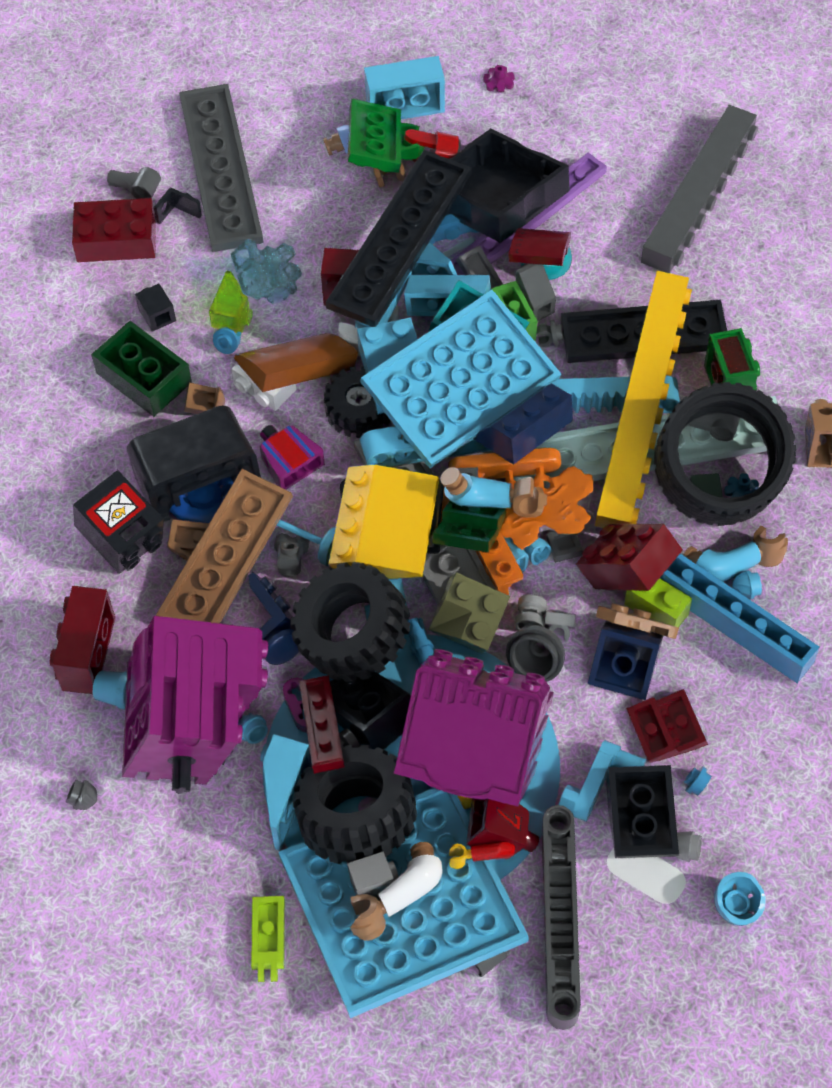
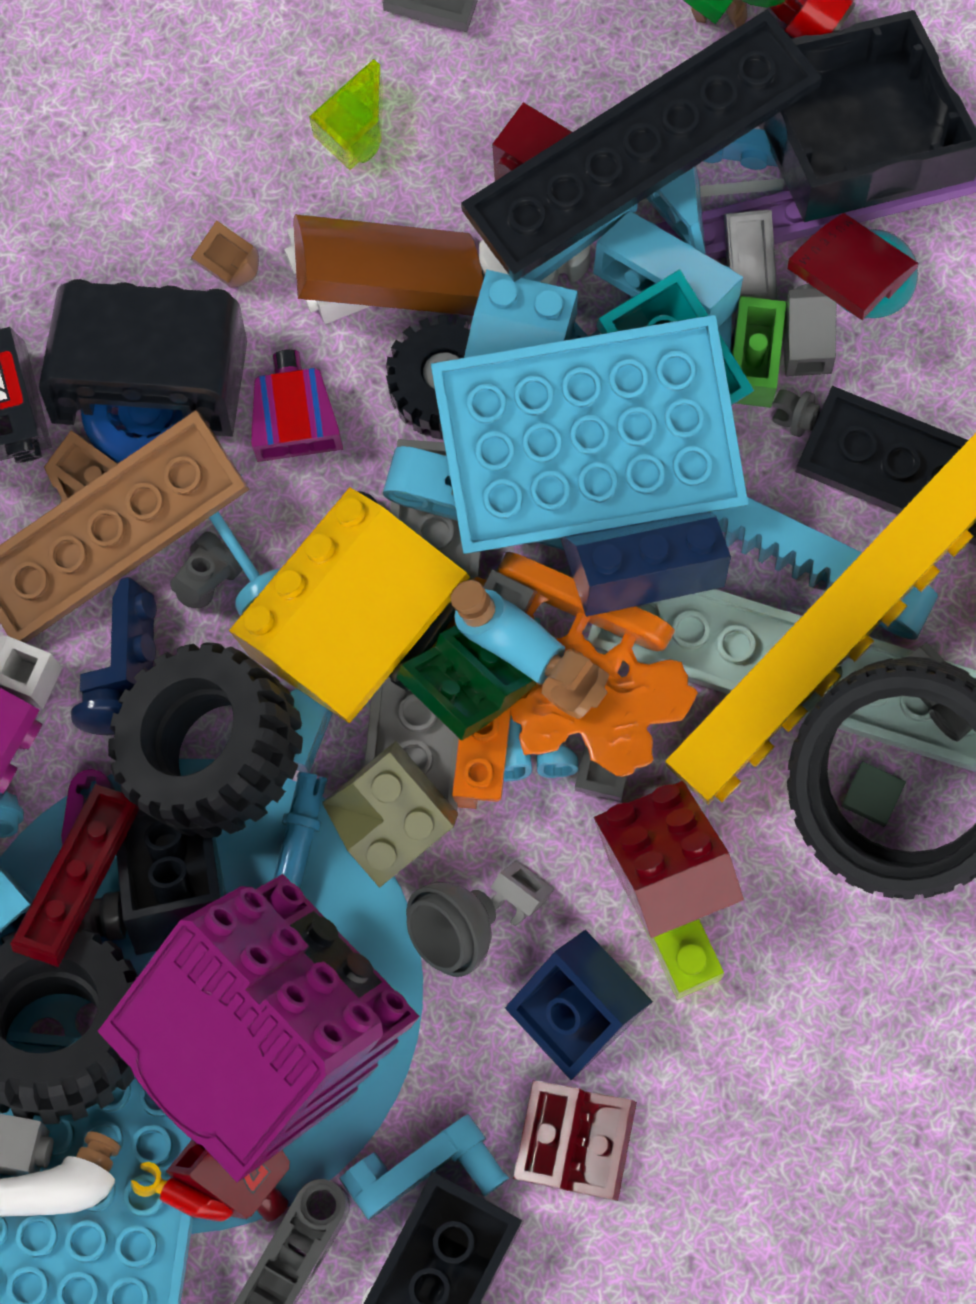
camera: 35 degrees right, 15 degrees up
(141, 368) = (164, 160): dark green brick -> none
(155, 307) = (245, 65): black brick -> none
(226, 340) = (315, 174): dark azure plate -> none
(266, 271) = (431, 88): clear light blue hips -> none
(531, 611) = (493, 849): light grey wheel -> none
(638, 620) = (618, 960): medium nougat wing -> none
(697, 780) = (562, 1252): dark azure plate -> none
(736, 561) = (807, 937): piece -> none
(740, 487) = (918, 827): dark azure plant -> none
(743, 619) = (779, 1040): dark azure brick -> none
(748, 584) = (831, 987): medium azure plate -> none

